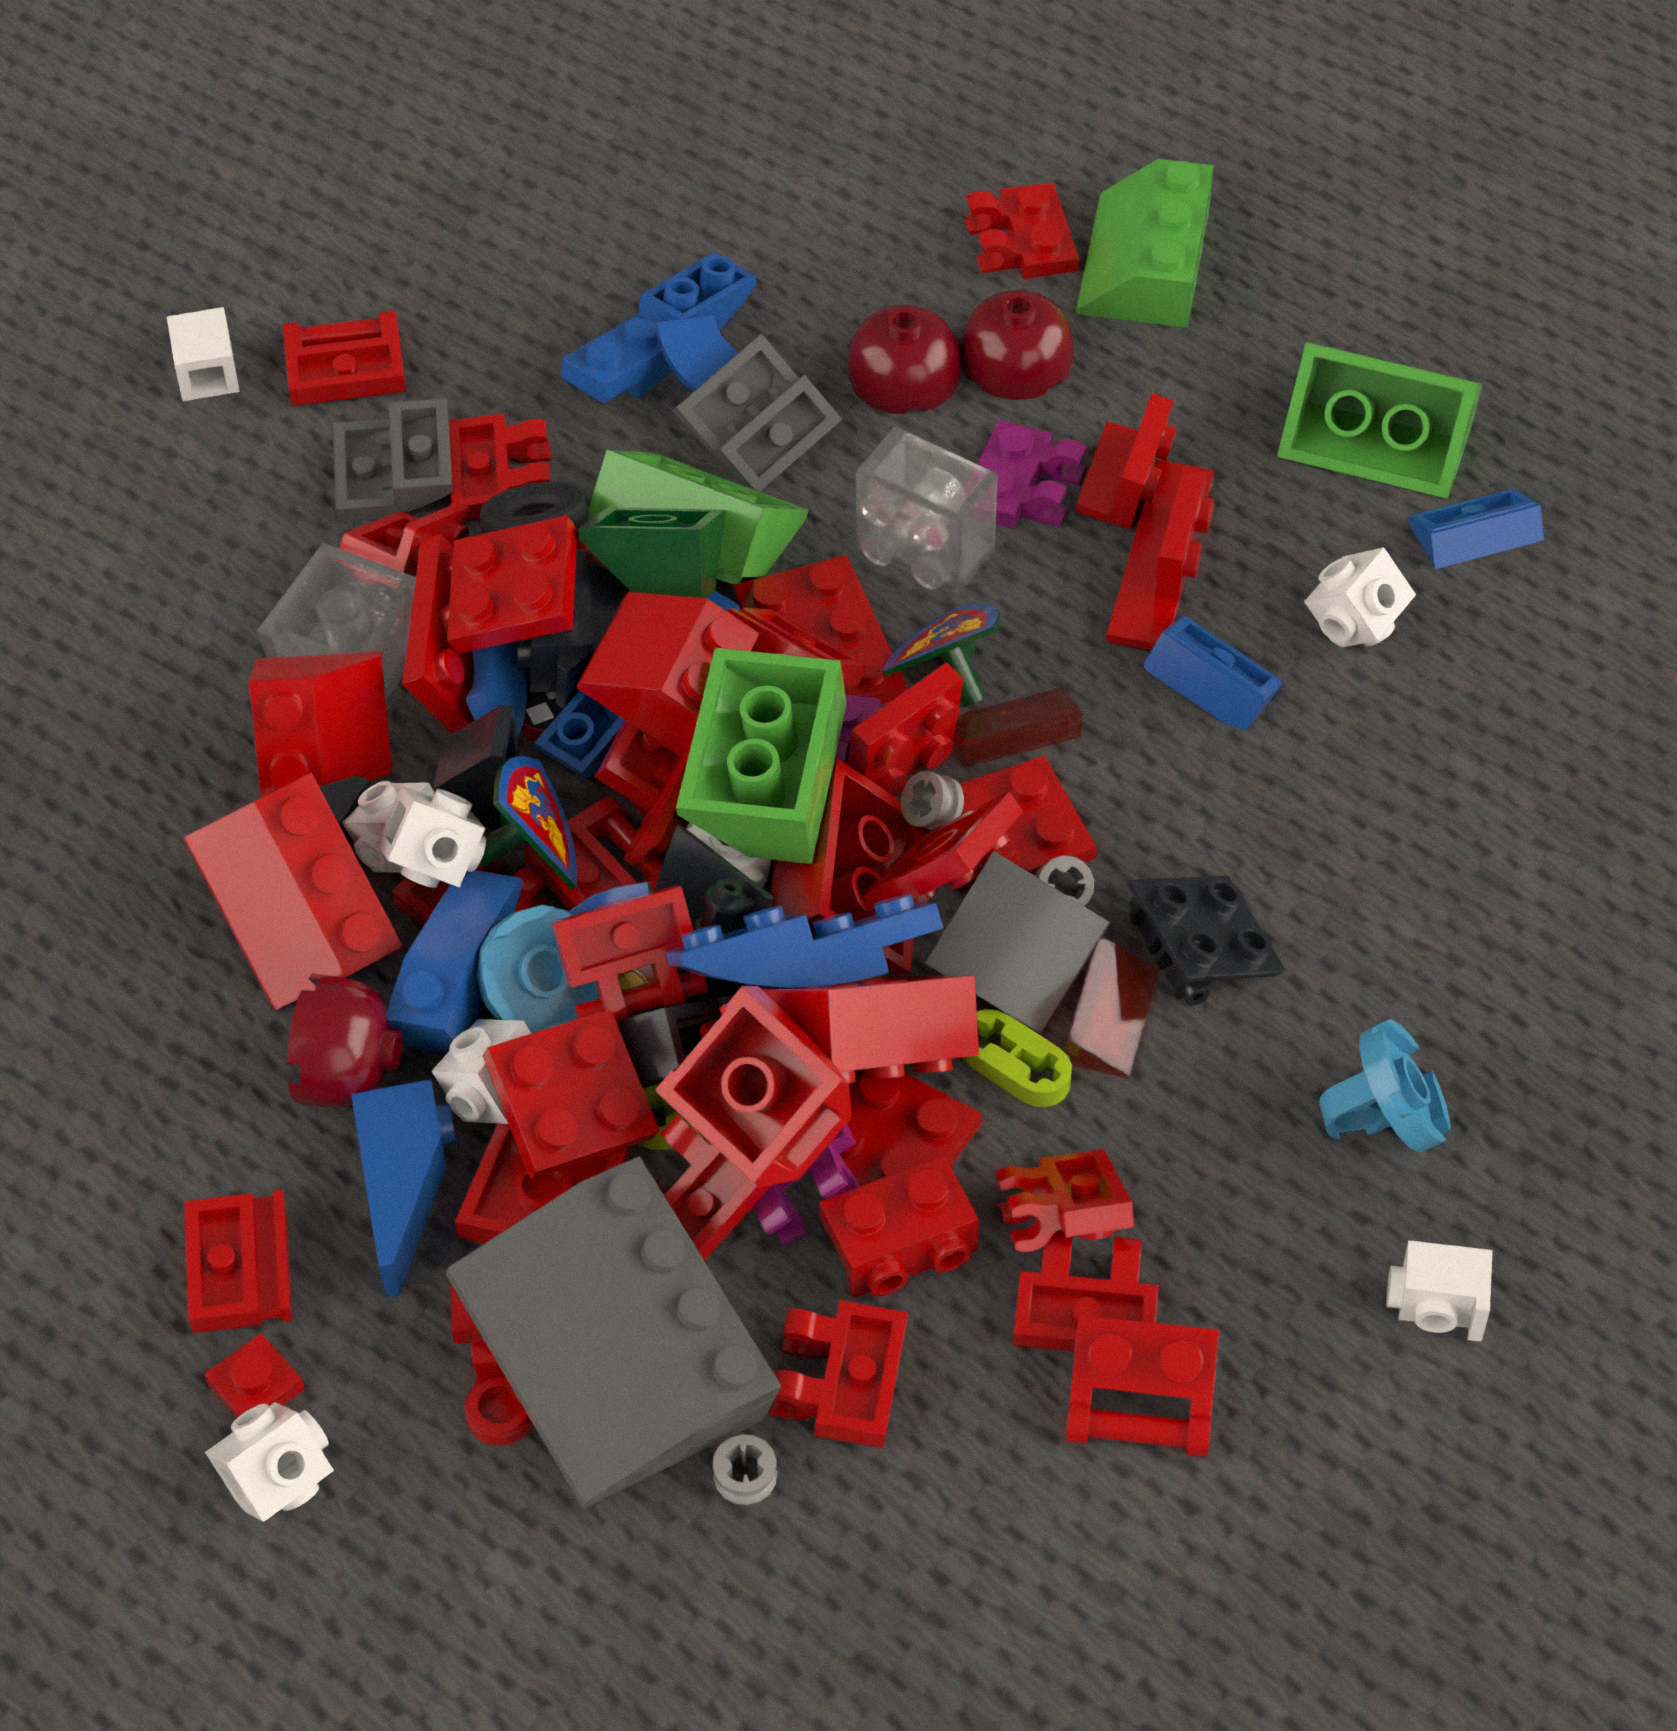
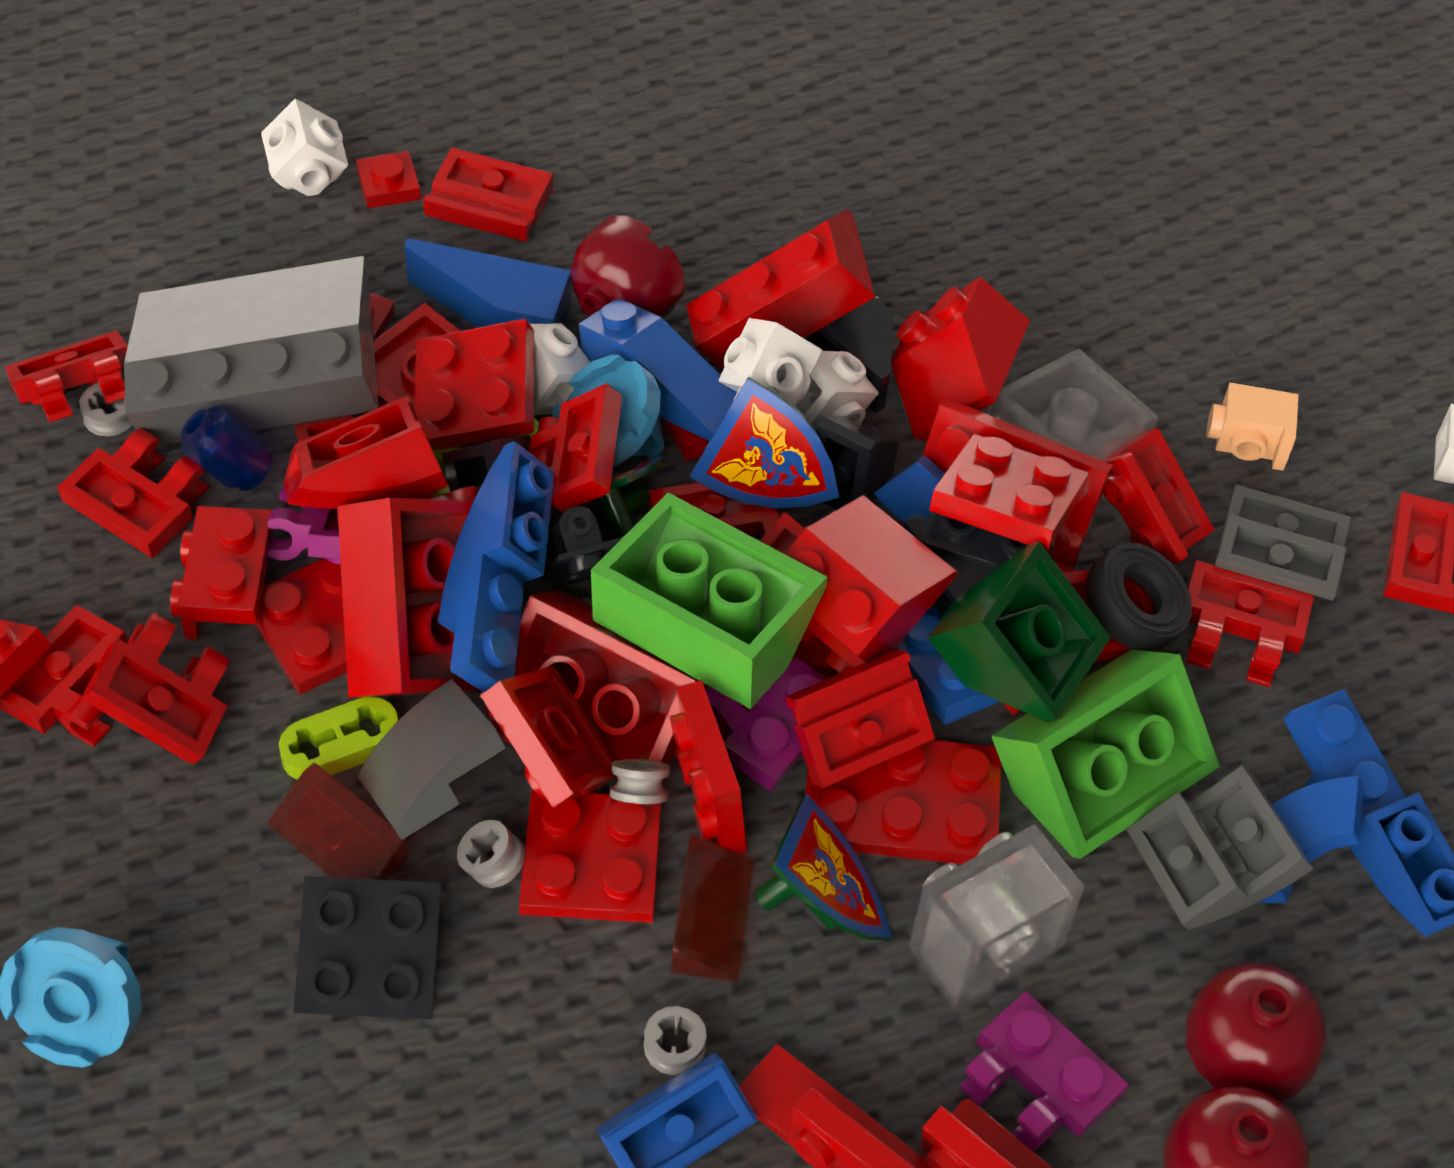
camera: 110 degrees right, 0 degrees up
(256, 507) = (1255, 423): none -> light nougat brick
(717, 1526) = (50, 374): none -> red plate
(749, 1278) = (225, 448): none -> clear blue brick
(1133, 690) = (676, 1018): none -> light grey bush

